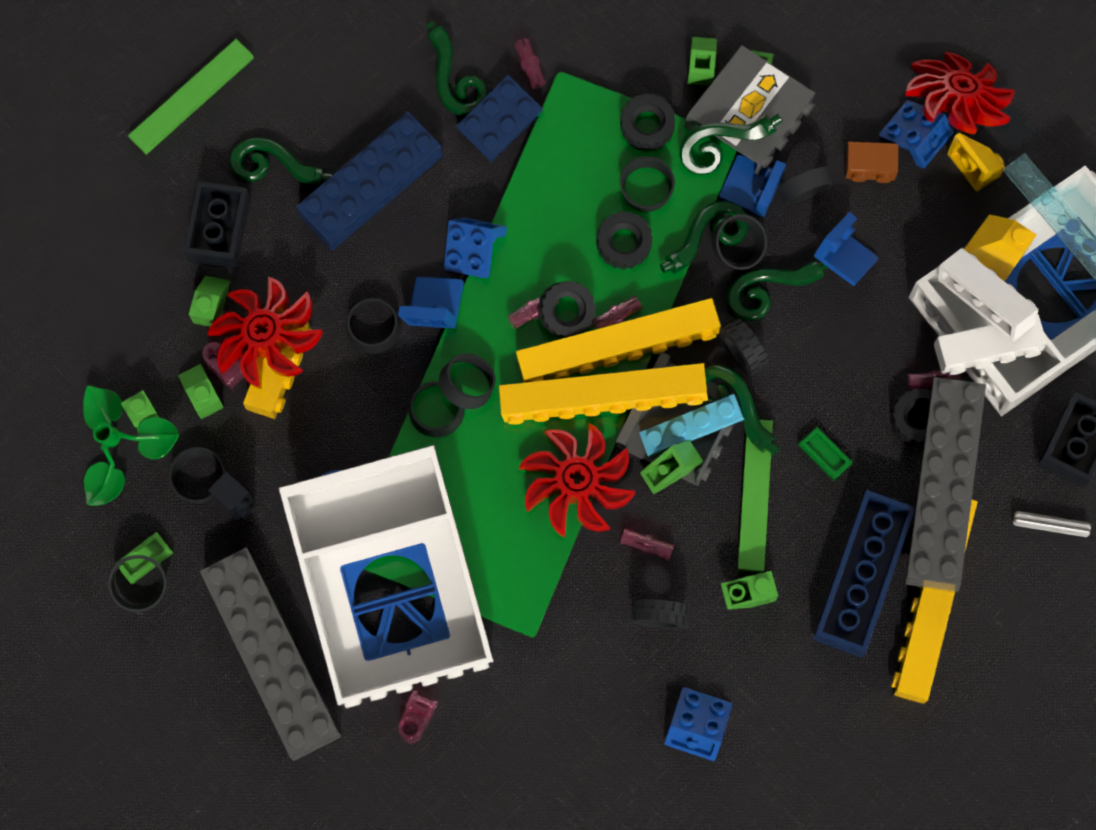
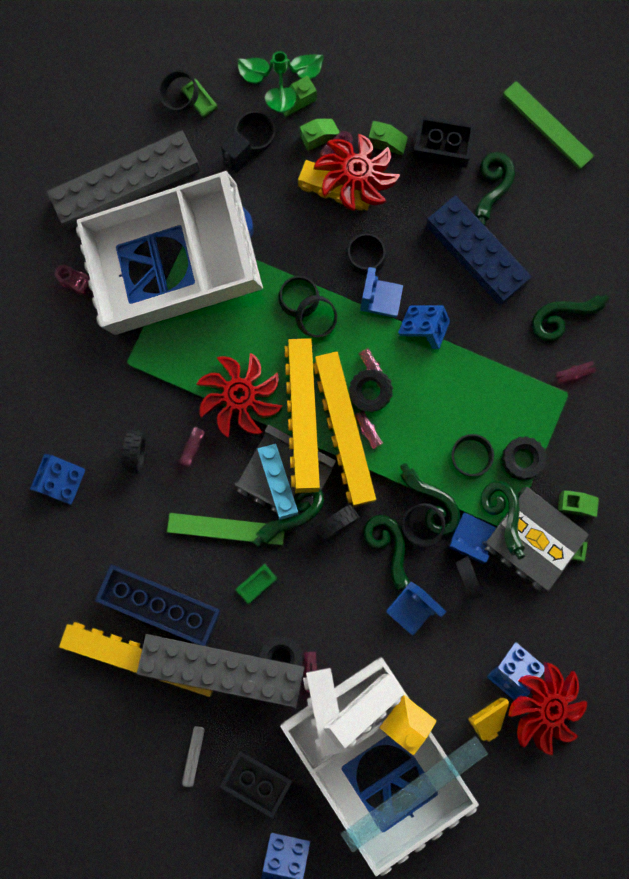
camera: 90 degrees right, 5 degrees up
(499, 118) = (528, 347): dark blue plate -> none
(624, 221) = (427, 422): black tyre -> none
(671, 466) = (248, 466): bright green slope -> none
(750, 591) = (149, 518): bright green slope -> none
(871, 162) = (491, 634): dark orange brick -> none

